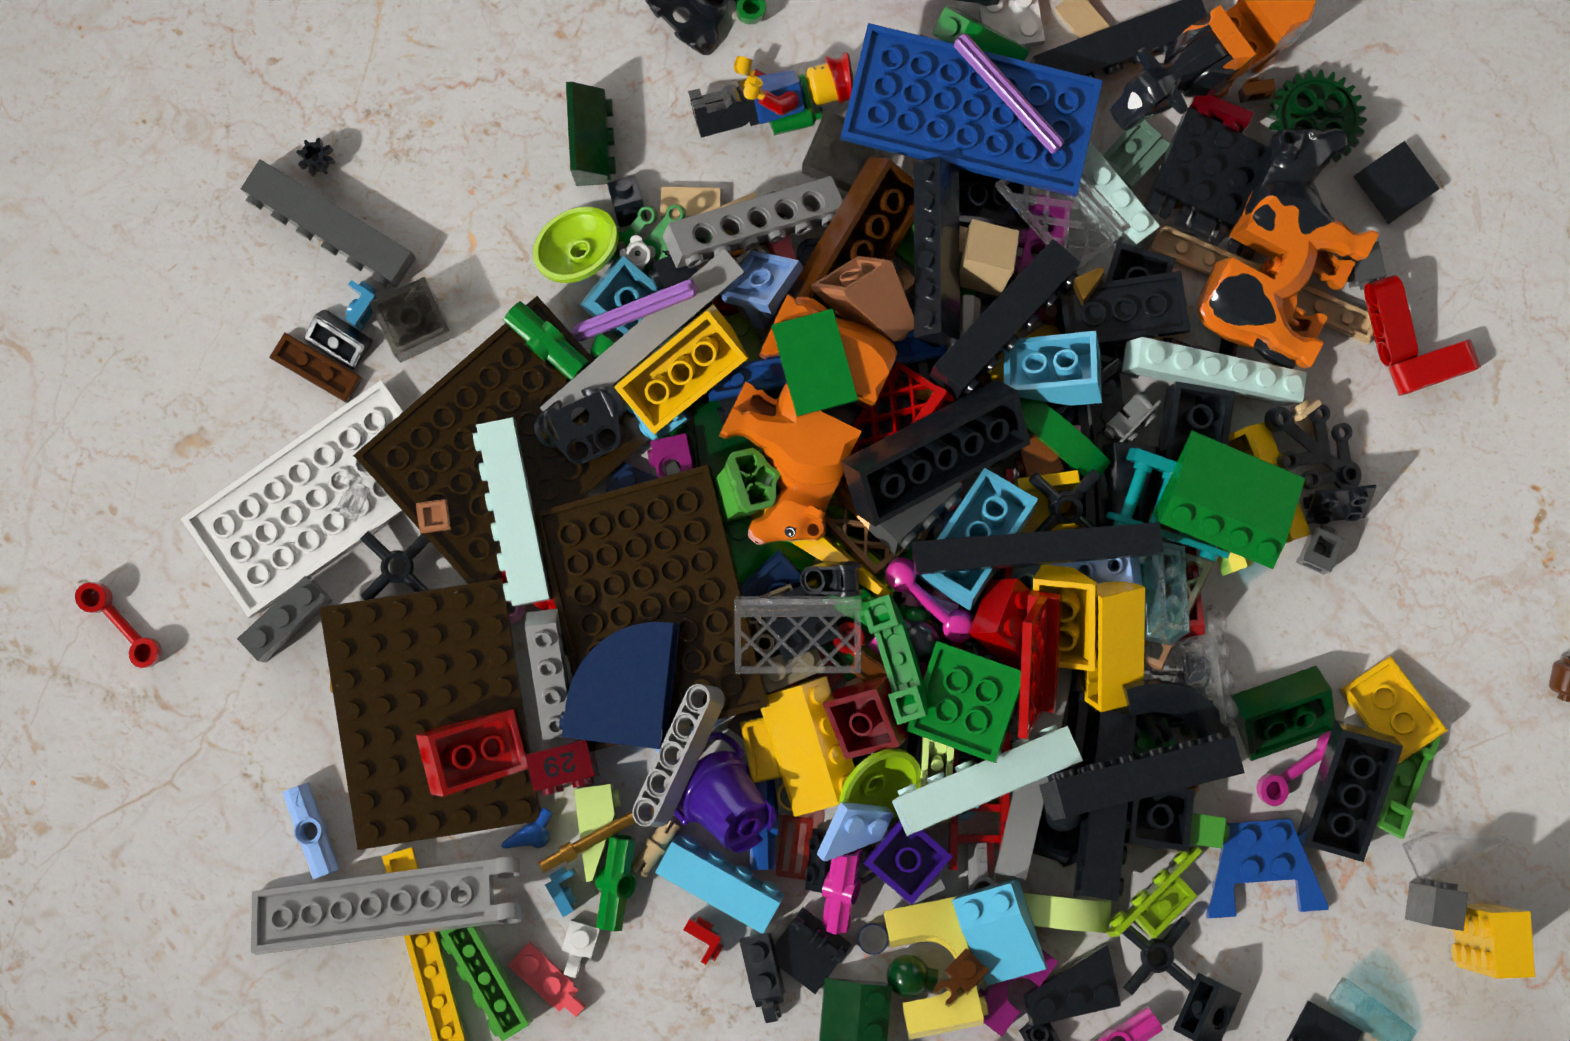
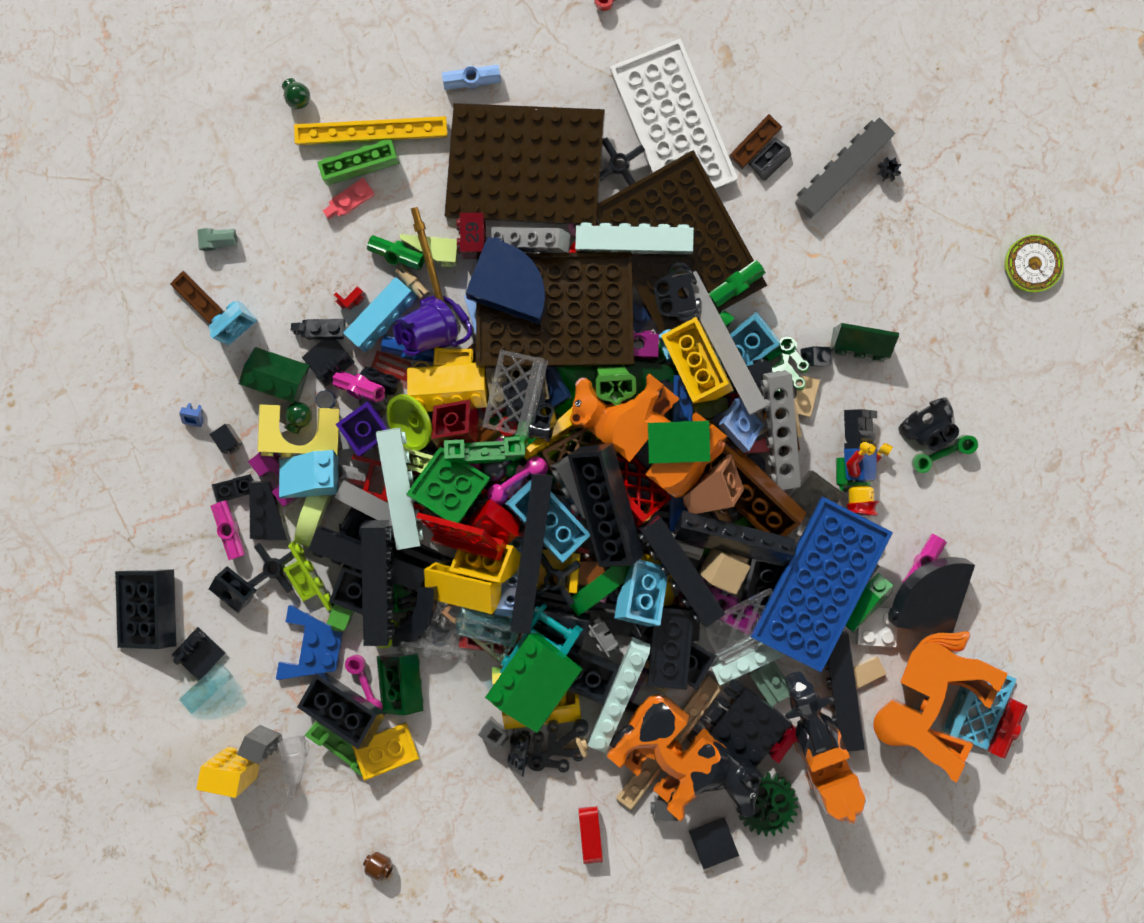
camera: 105 degrees right, 5 degrees up
(284, 619) = (603, 88): dark grey brick -> none
(353, 500) = (665, 144): clear bracket -> none
(359, 309) = (785, 177): dark azure bracket -> none
(381, 906) = (414, 107): light grey hinge -> none
(411, 319) = (771, 205): clear smoke brick -> none
(433, 516) = (643, 190): nougat tile -> none
(471, 752) = (493, 182): red slope -> none
(532, 834) = (437, 209): blue animal -> none
(563, 897) = (394, 219): dark azure bracket -> none
(575, 244) = (794, 317): lime dish -> none
(580, 943) = (366, 223): white plate -> none
(635, 244) = (780, 359): white plate -> none
(635, 310) = (741, 342): medium lavender axle -> none
(666, 761) = (456, 296): light grey beam -> none
(854, 828) = (390, 400): light blue wing -> none
(964, 974) = (288, 446): reddish brown plate -> none
(1008, 93) = (826, 609): medium lavender axle -> none
(1087, 283) = (691, 628): pearl gold slope -> none
(1256, 89) = (794, 770): reddish brown plate -> none
(1391, 320) = (626, 815): red beam -> none

